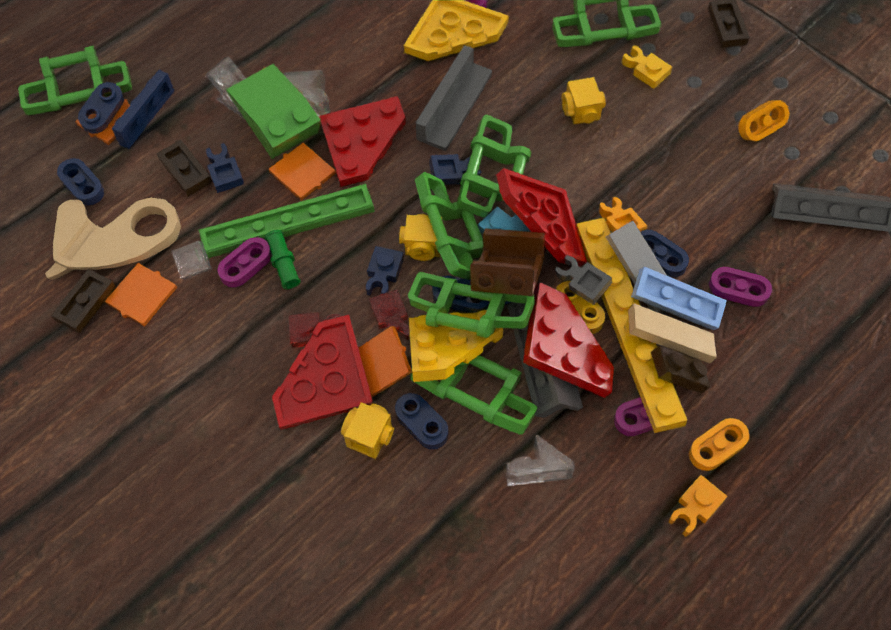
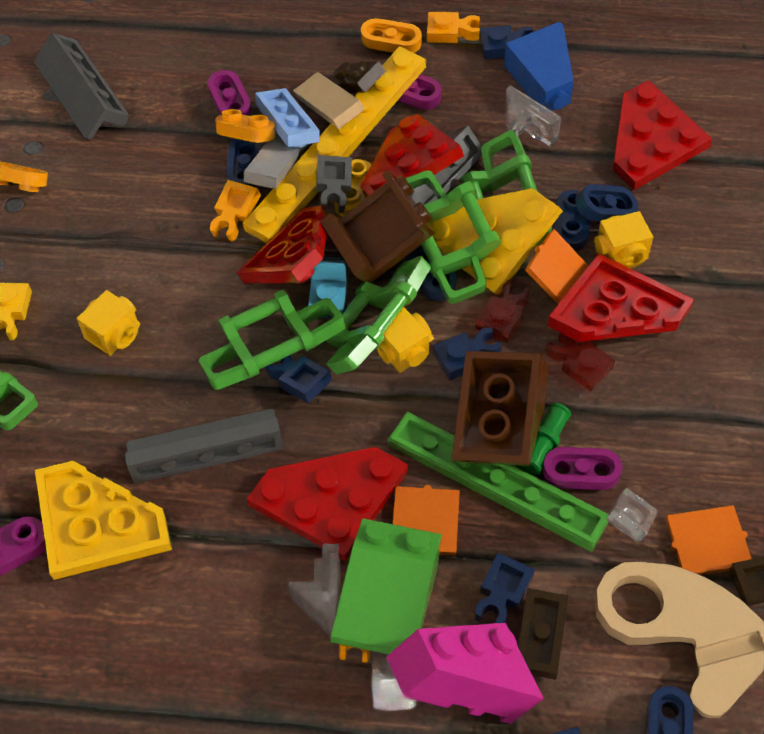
camera: 130 degrees left, 5 degrees down
(194, 101) = (466, 668): none -> dark pink wedge
(318, 240) = (500, 407): none -> reddish brown slope
(404, 440) = (604, 201): none -> dark blue plate
(445, 555) = (653, 136): none -> red plate
(582, 527) = (542, 66): none -> blue slope
(647, 531) = (494, 39): none -> dark blue plate
(691, 264) = (243, 127): none -> light orange plate

